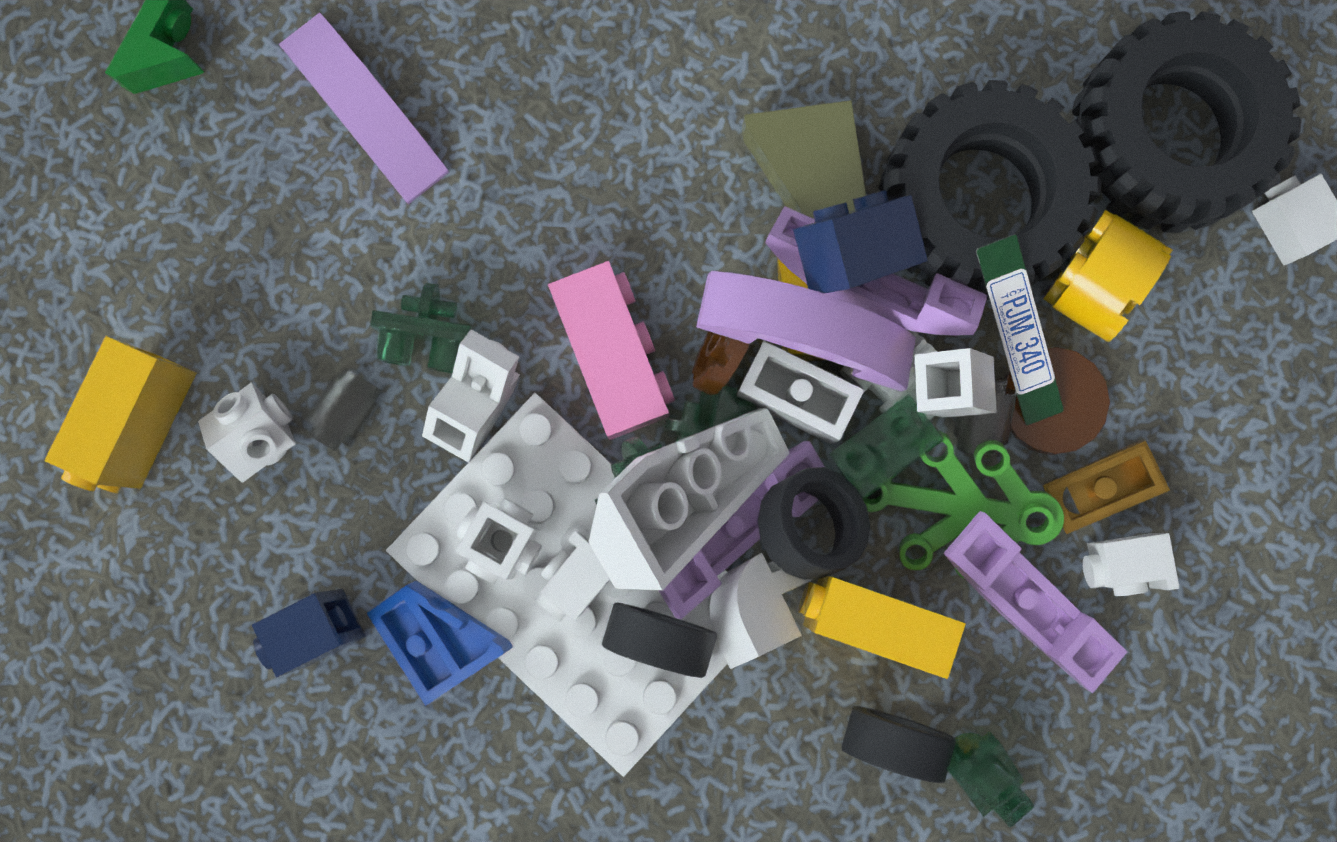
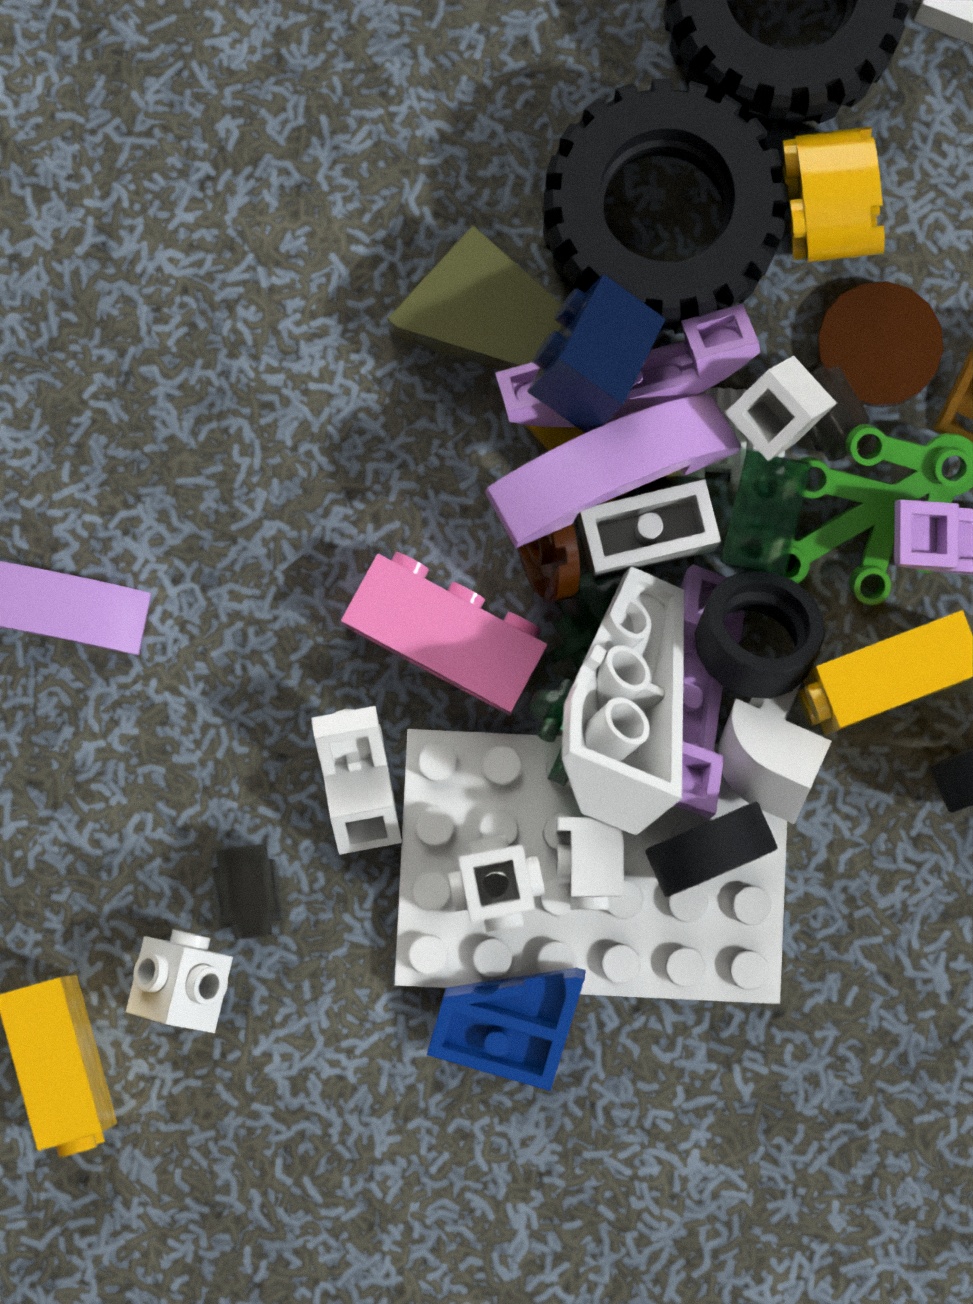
camera: 45 degrees left, 0 degrees up
(306, 632) = (393, 1112): dark blue brick -> none
(399, 331) = (237, 777): clear green hips -> none
(1020, 329) = (797, 310): sticker -> none

